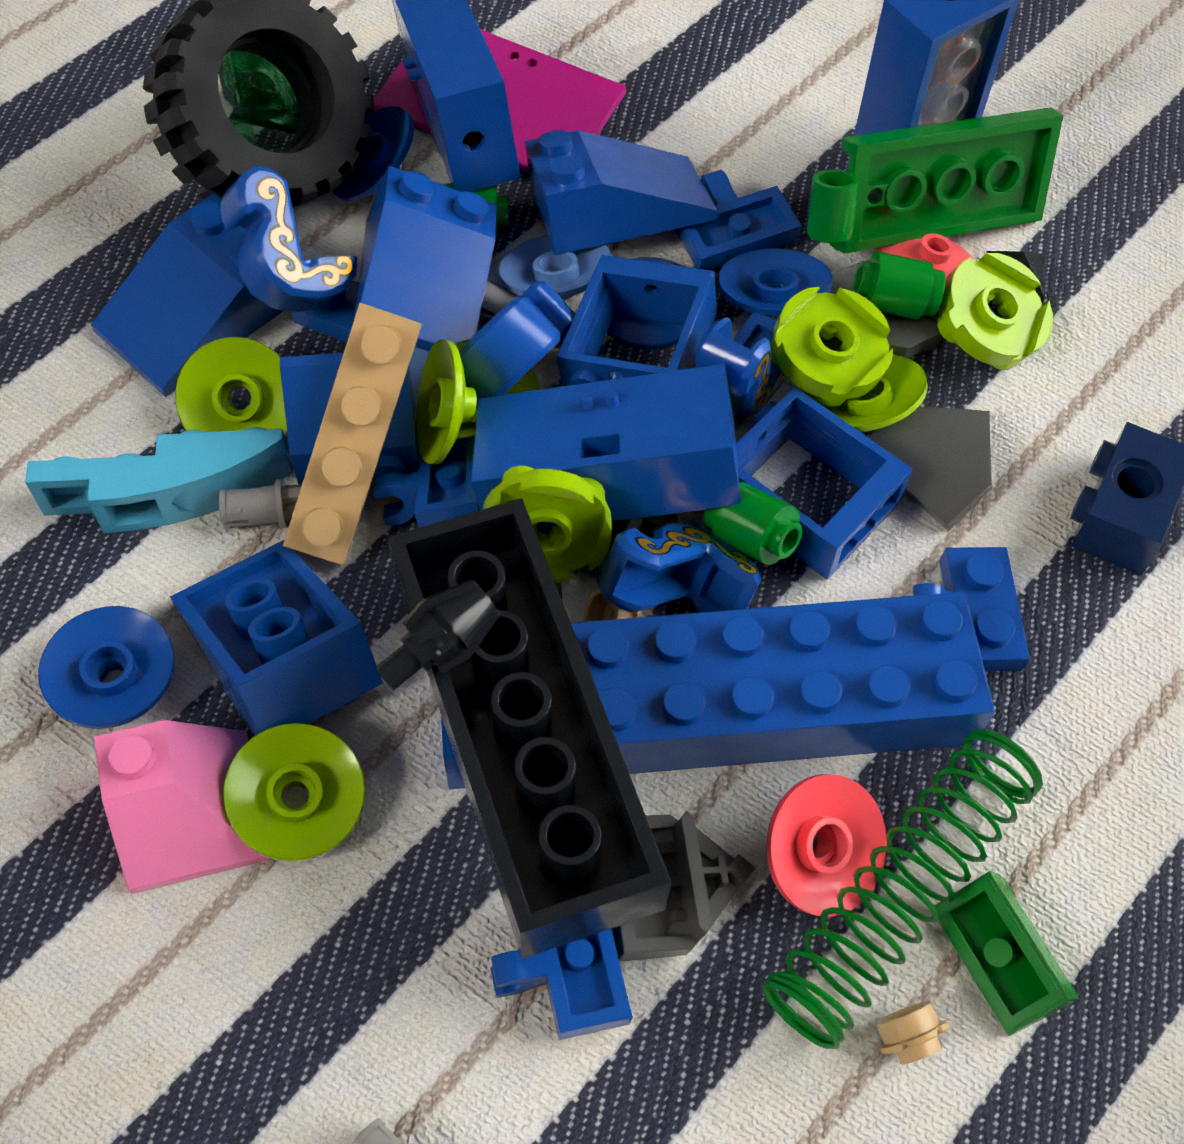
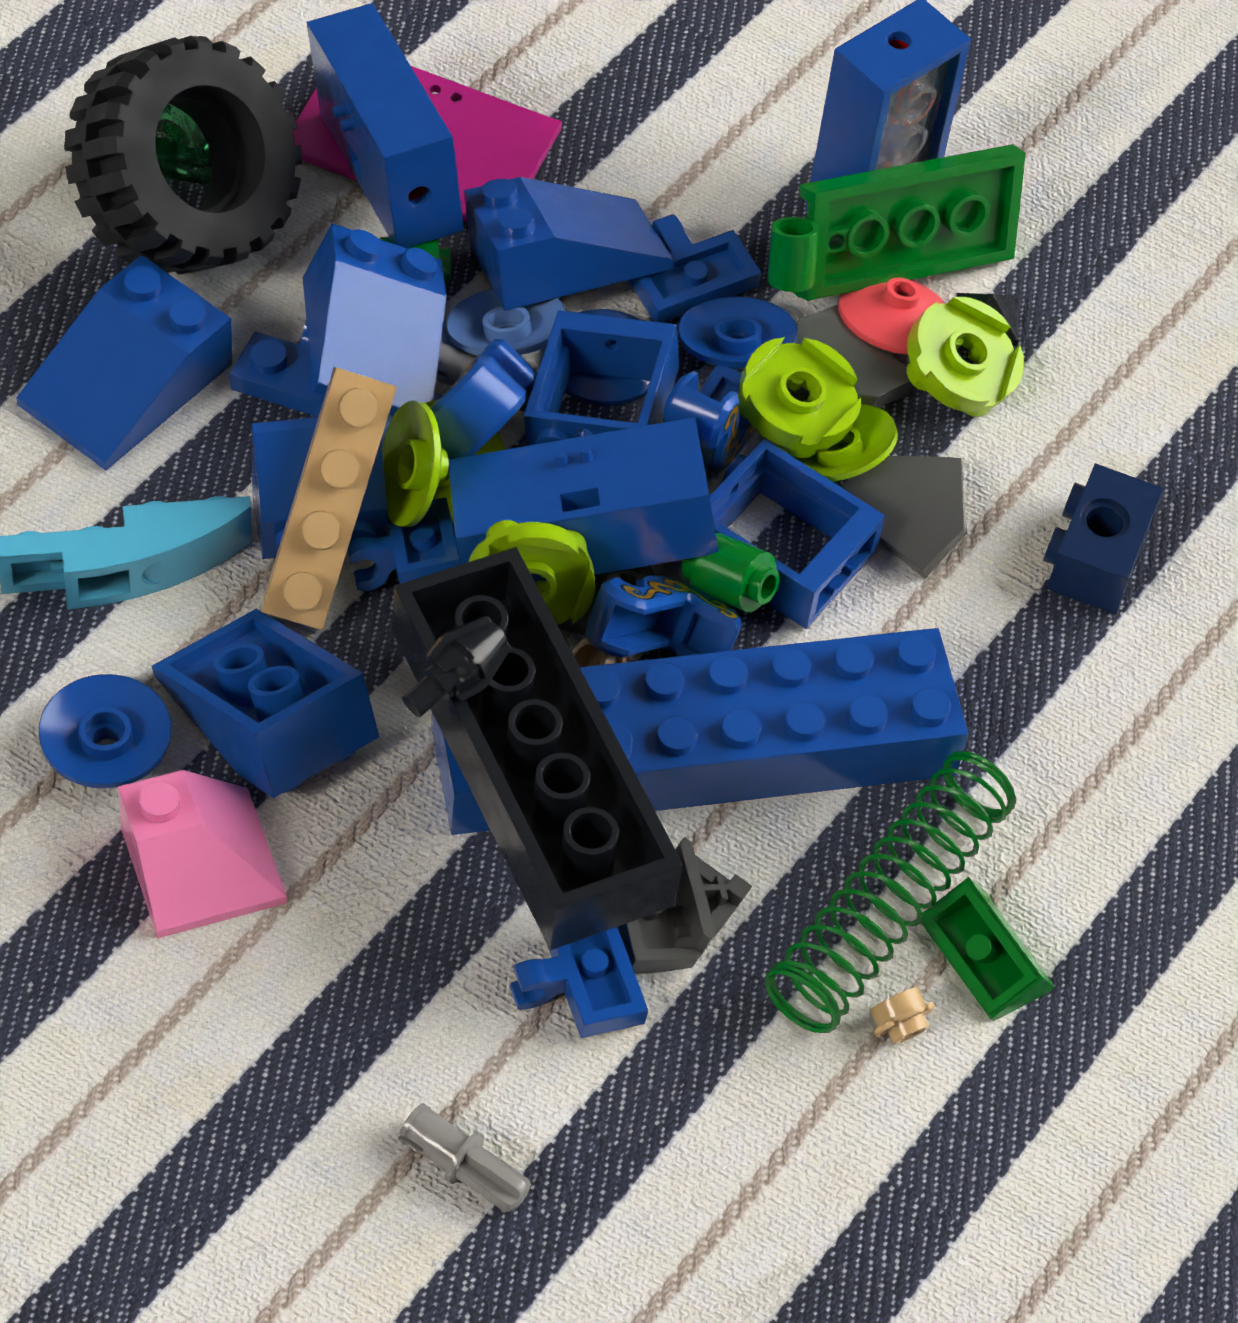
camera: 10 degrees left, 5 degrees down
(212, 376) = (184, 434): lime dish -> none
(258, 505) = (231, 574): light grey axle -> none
(271, 251) = (221, 313): blue animal -> none
(289, 758) = (315, 809): lime dish -> none
(387, 147) = (314, 207): blue dish -> none
(846, 831) = (833, 845): coral dish -> none
(900, 285) = (866, 333): green brick -> none
(992, 601) = (967, 644): blue plate -> none

